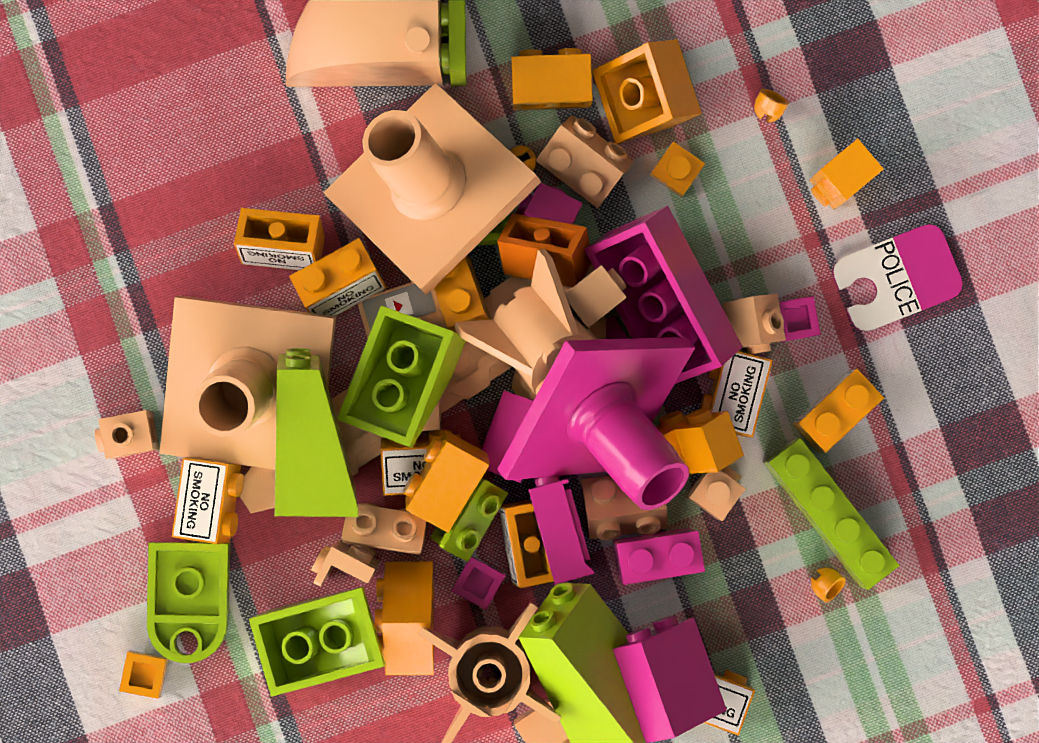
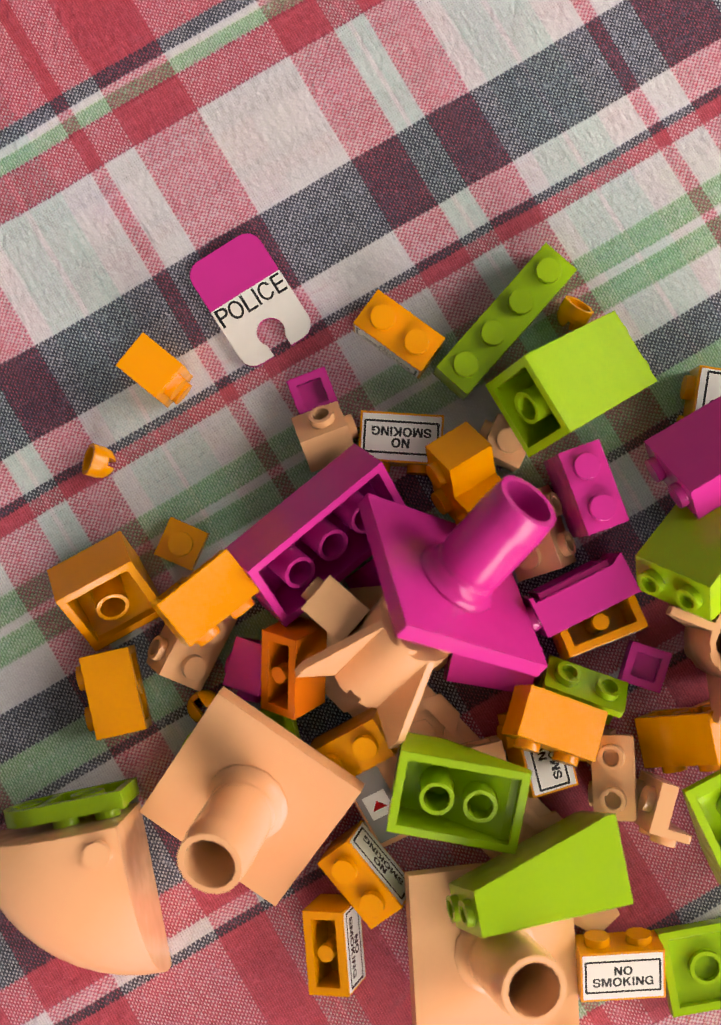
camera: 100 degrees left, 0 degrees up
(626, 180) = (205, 599): none -> light orange brick
(762, 562) = (570, 382): none -> lime slope

